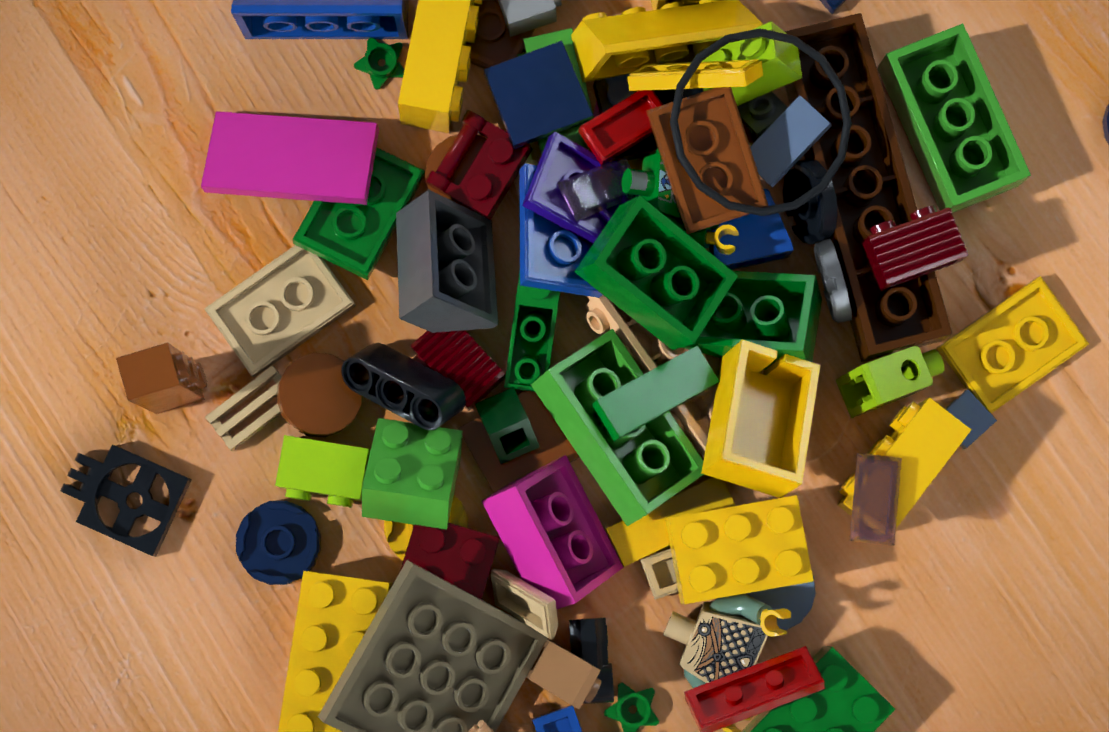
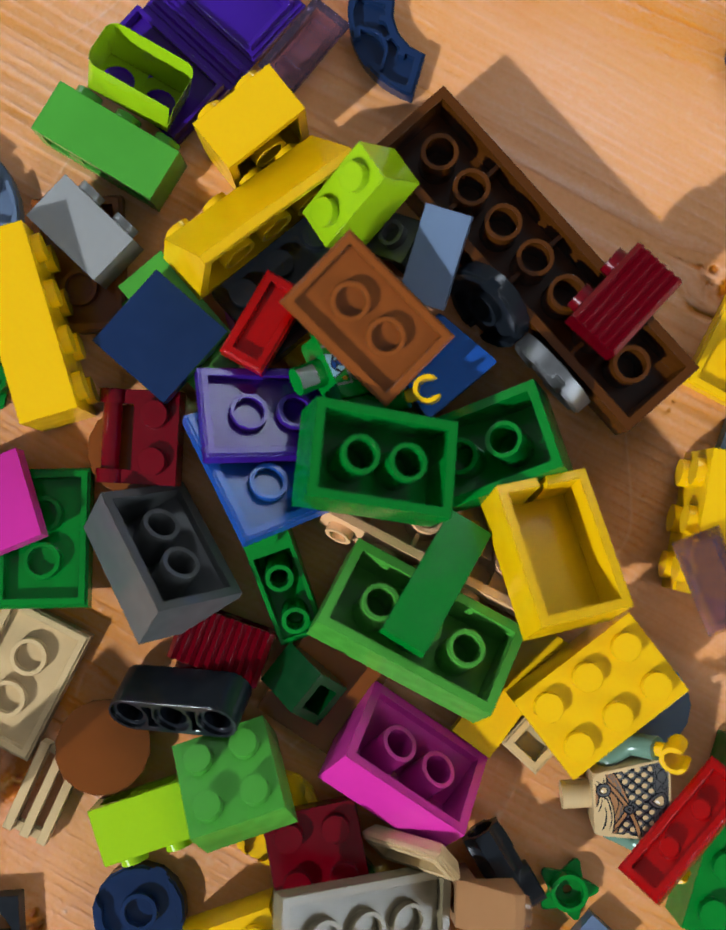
camera: 25 degrees left, 5 degrees up
(595, 189) = (268, 406): clear purple tile -> none
(707, 75) = (311, 237): yellow tile -> none
(843, 105) = (306, 277): black piece -> none
(889, 379) = (656, 444): lime torso -> none
(953, 119) = (587, 147): bright green brick -> none

